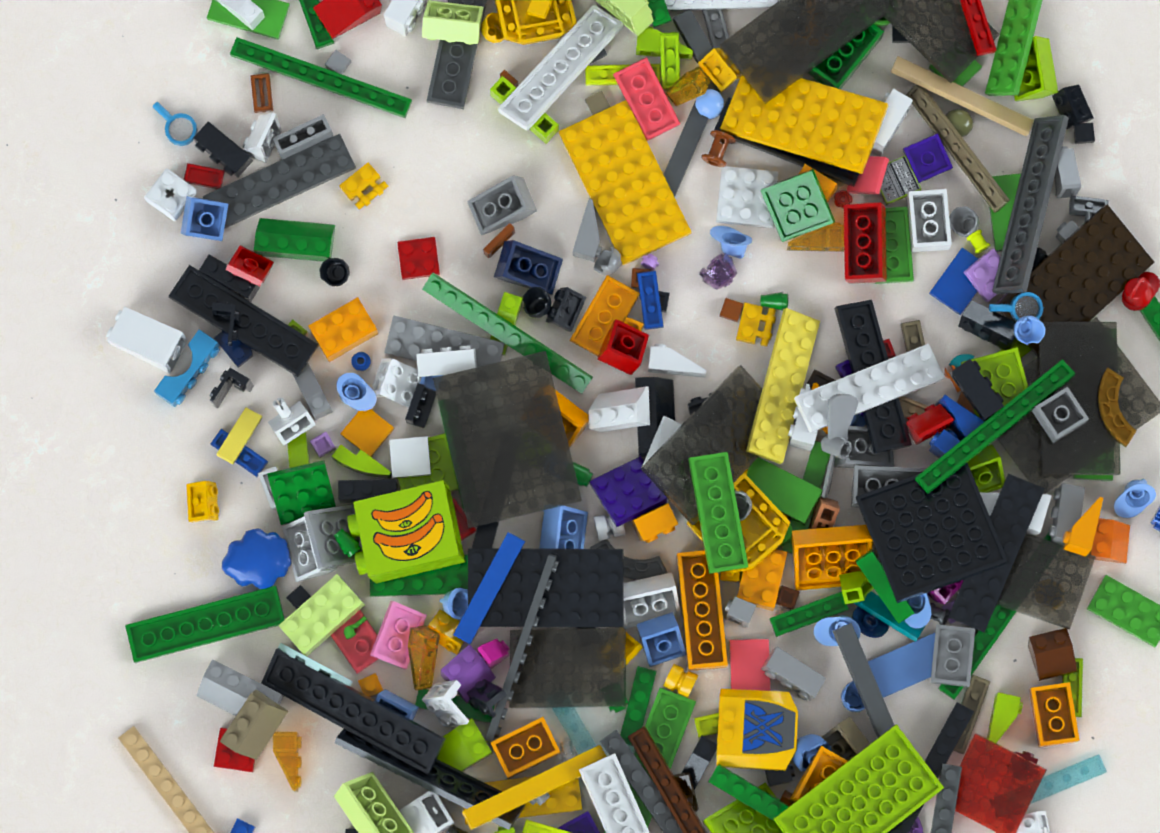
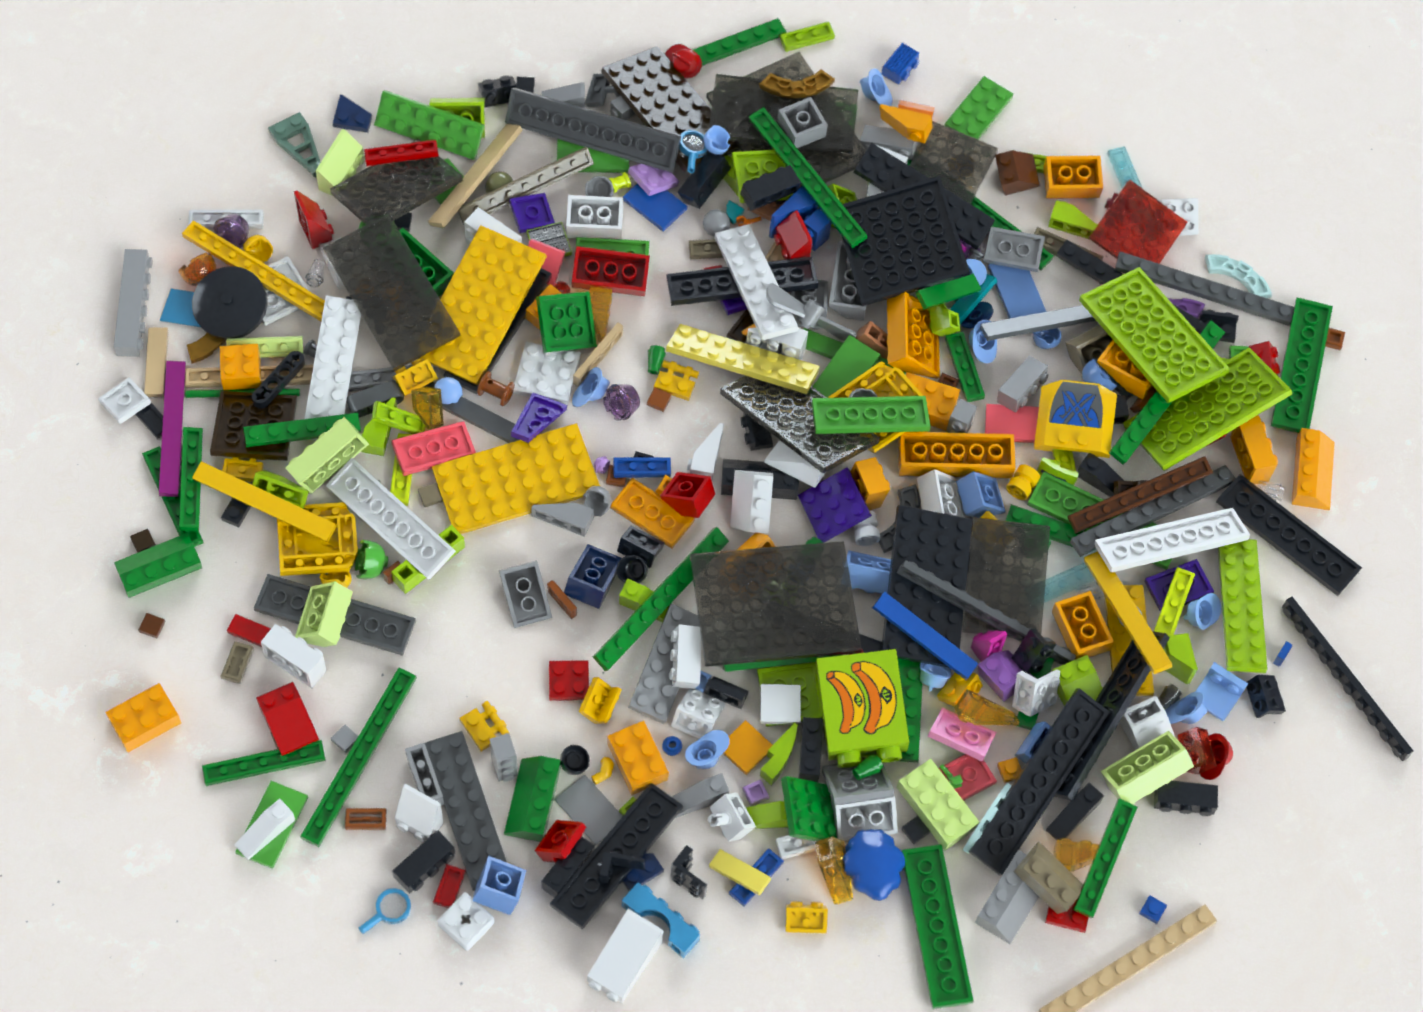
camera: 90 degrees left, 15 degrees down
(258, 516) = (829, 857): none -> clear yellow slope
(279, 778) = (1105, 858): none -> green plate
(292, 293) = (588, 805): none -> light grey piece
(322, 204) = (503, 757): none -> light grey brick
(329, 302) = (605, 771): none -> yellow arm
(329, 750) = (1075, 812): none -> black slope
(397, 288) = (599, 701): none -> yellow bracket
(517, 57) = (370, 560): none -> bright green cylinder
(692, 191) = (536, 416): none -> dark purple wing
(699, 709) = (1053, 468): none -> lime slope
(772, 244) = (598, 354): none -> tan tile
(945, 346) = (715, 222): none -> light grey hair

